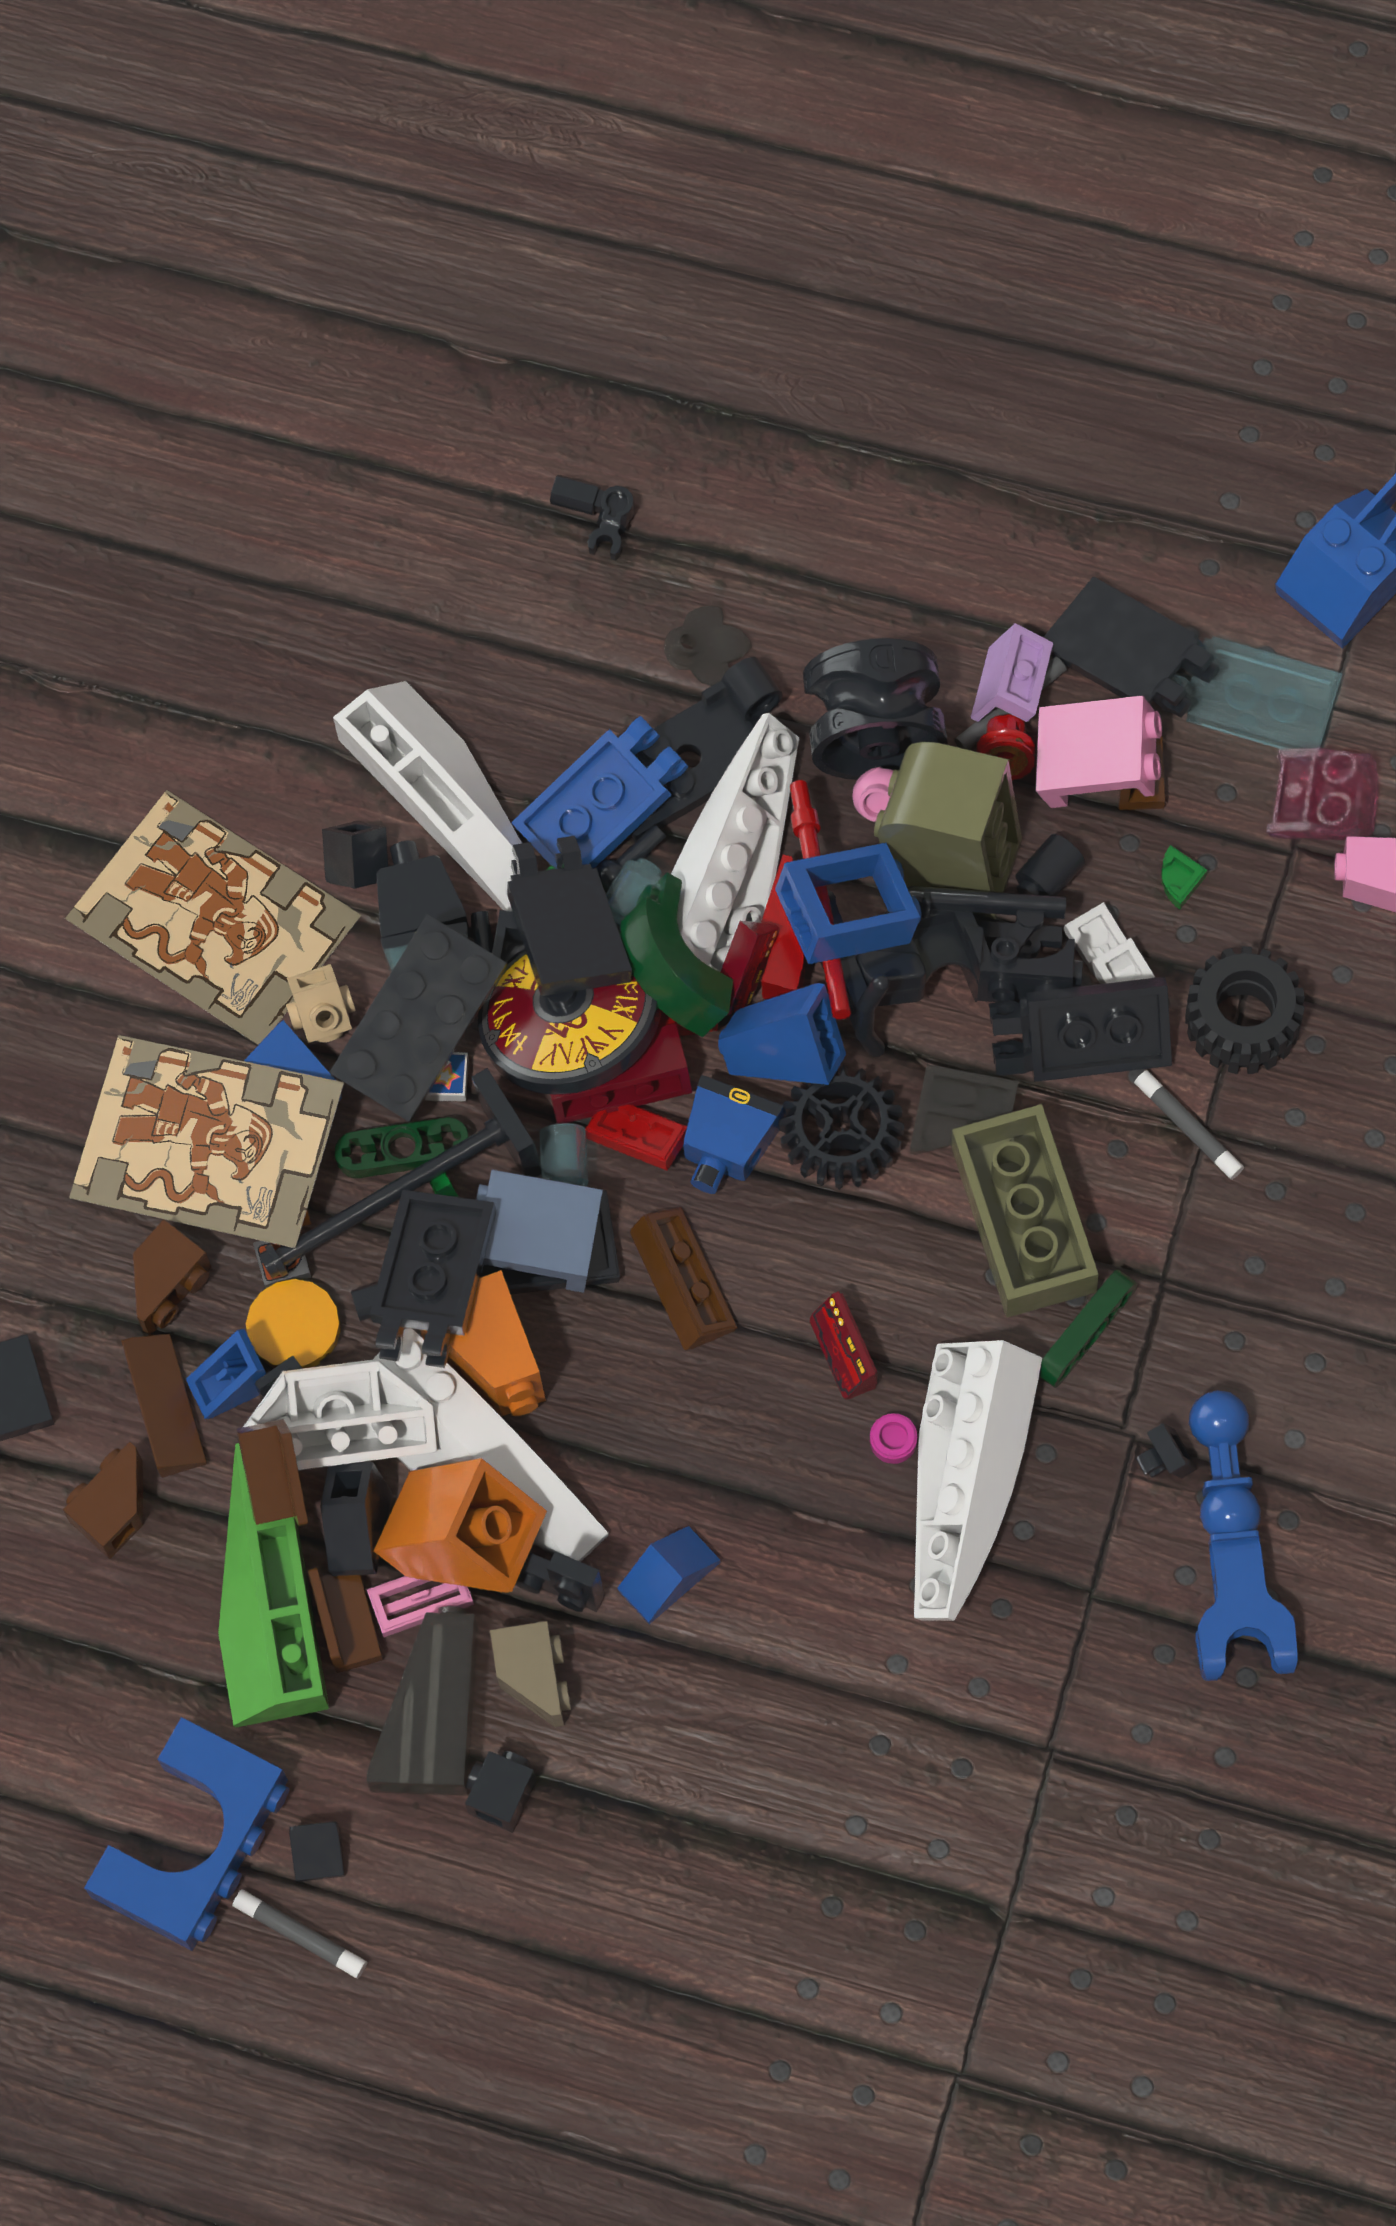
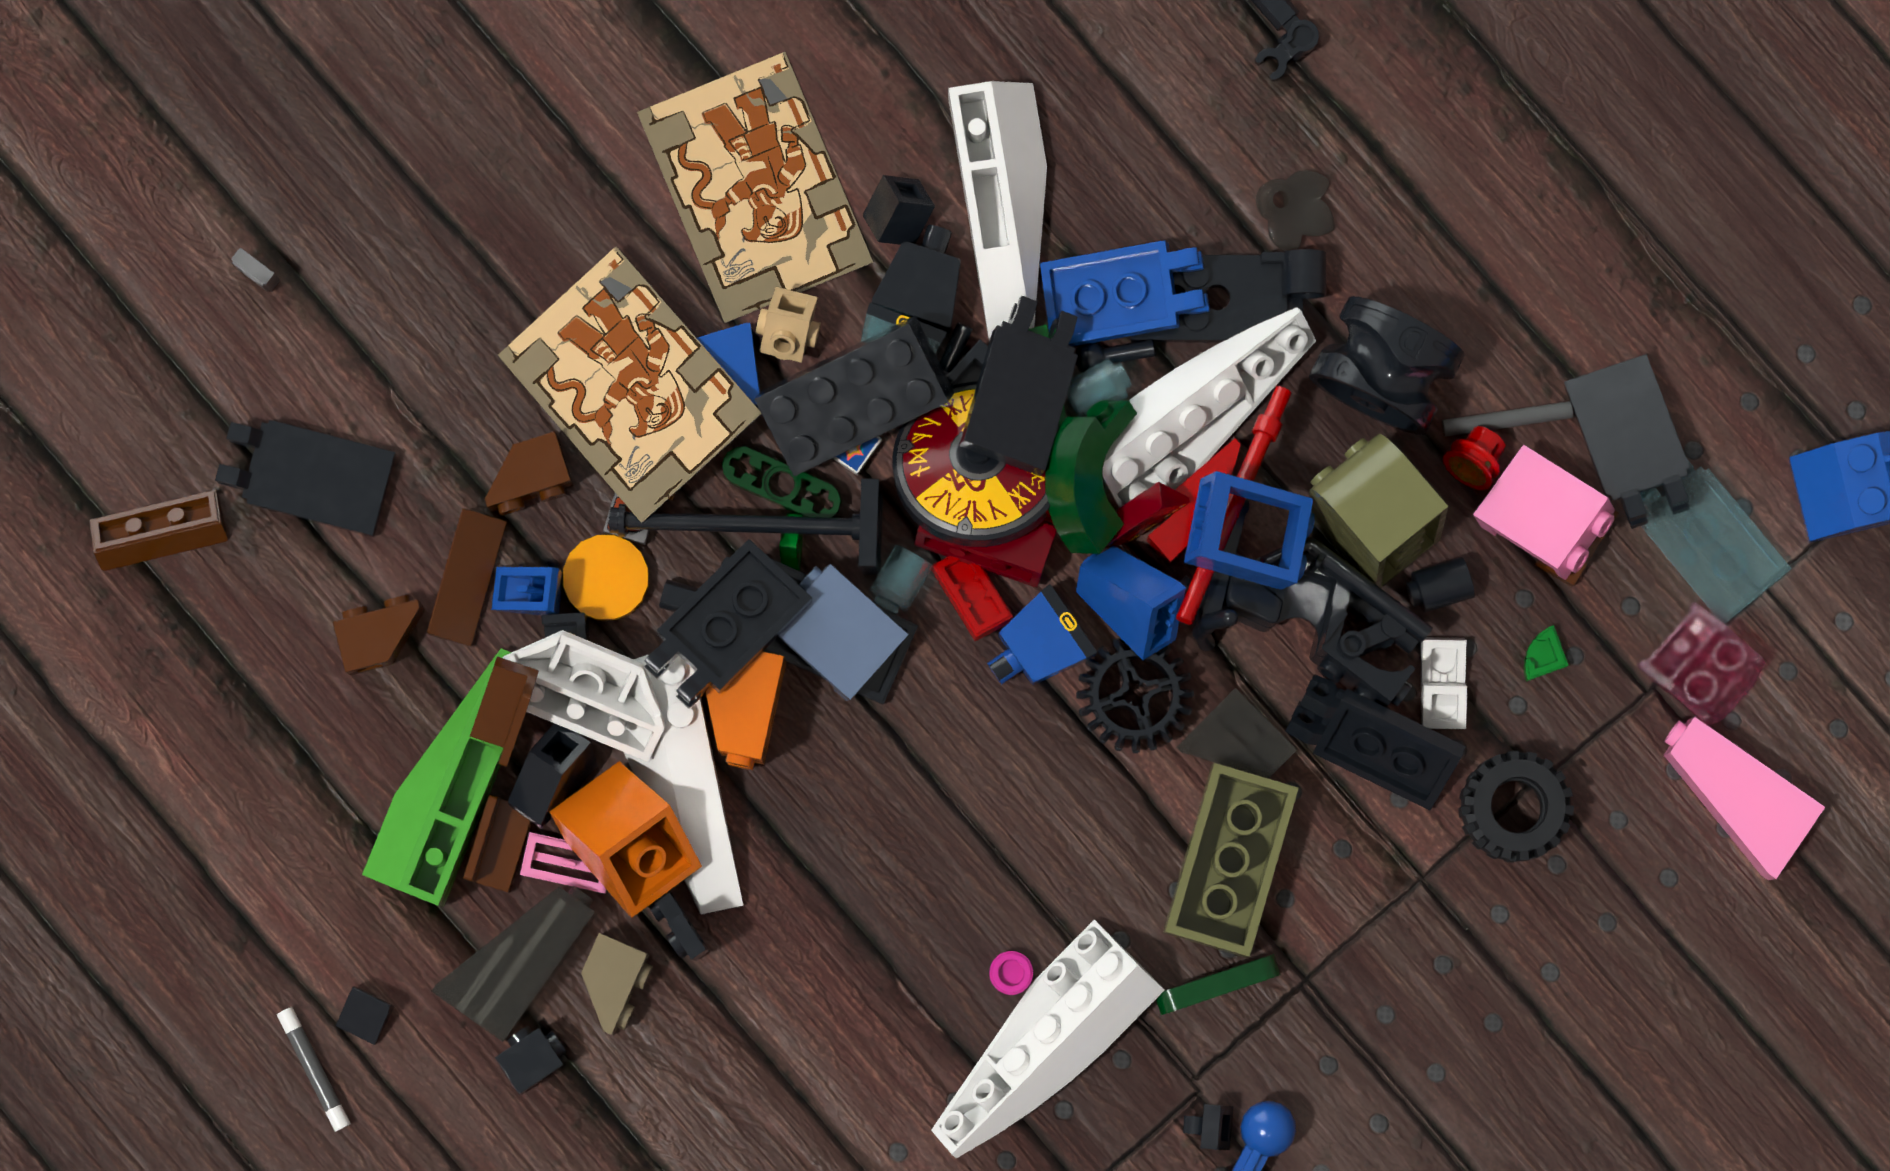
camera: 25 degrees right, 15 degrees up
(185, 1901) = (337, 935): blue arch -> none
(667, 1572) = (768, 968): blue slope -> none
(682, 1277) = (932, 735): reddish brown slope -> none
(843, 1347) = (1019, 875): slope -> none
(871, 792) = (1342, 431): bright pink animal -> none
(1013, 674) = (1522, 400): lavender panel -> none
(1189, 1124) = (1410, 867): dark grey bar -> none

